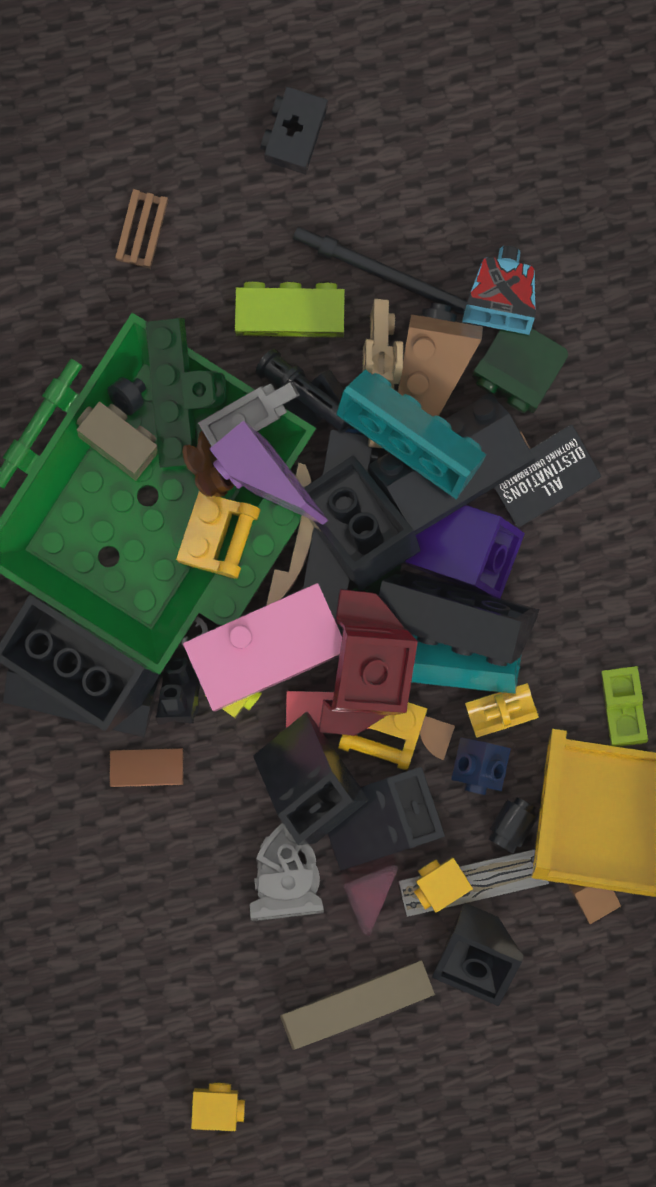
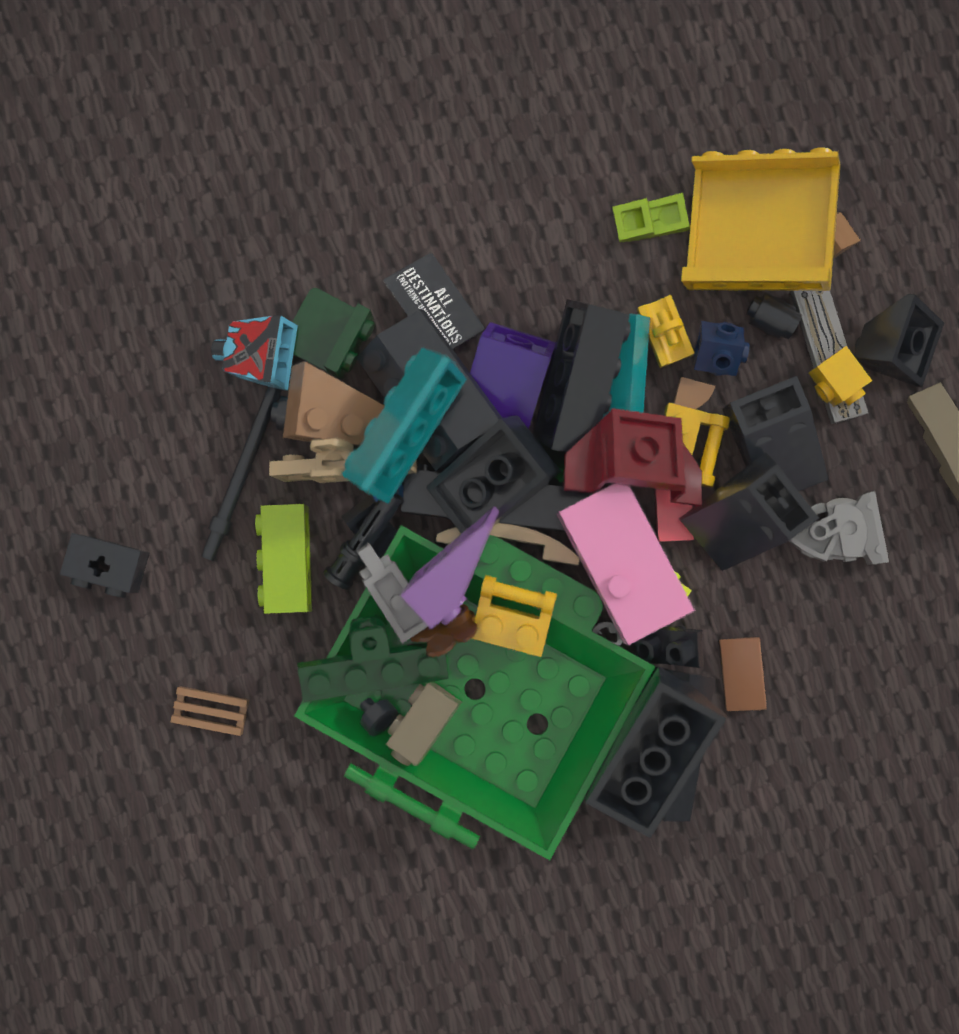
camera: 90 degrees left, 0 degrees up
(368, 895) = (850, 449): clear pink slope -> none

